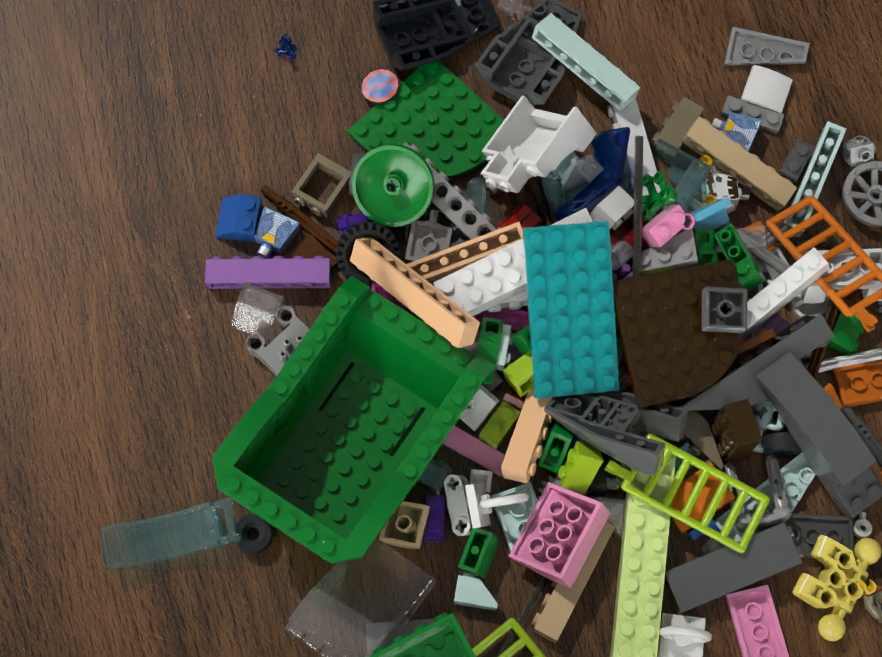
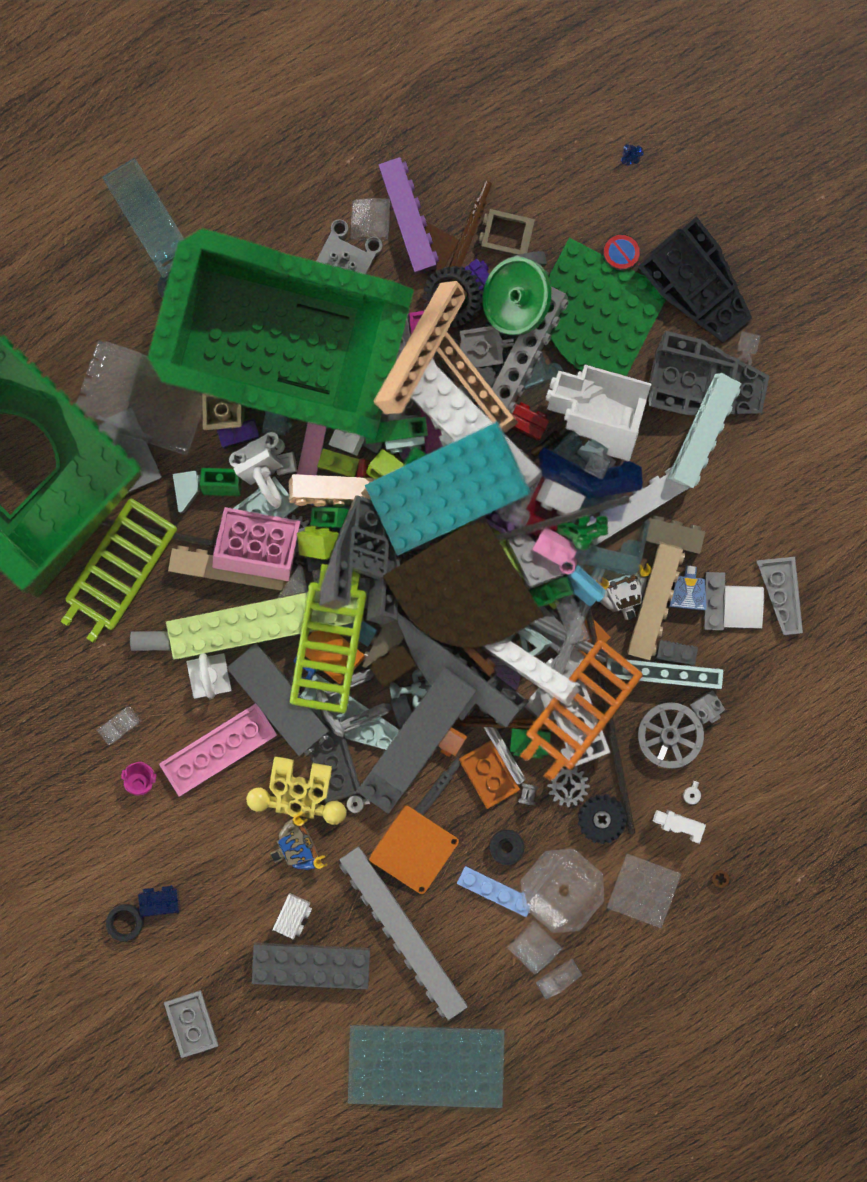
camera: 75 degrees right, 15 degrees up
(239, 217) = (451, 172): blue slope -> none
(275, 232) = (448, 207): medium blue torso -> none
(733, 300) = (483, 632): dark grey brick -> none
(734, 248) = (552, 624): green slope -> none

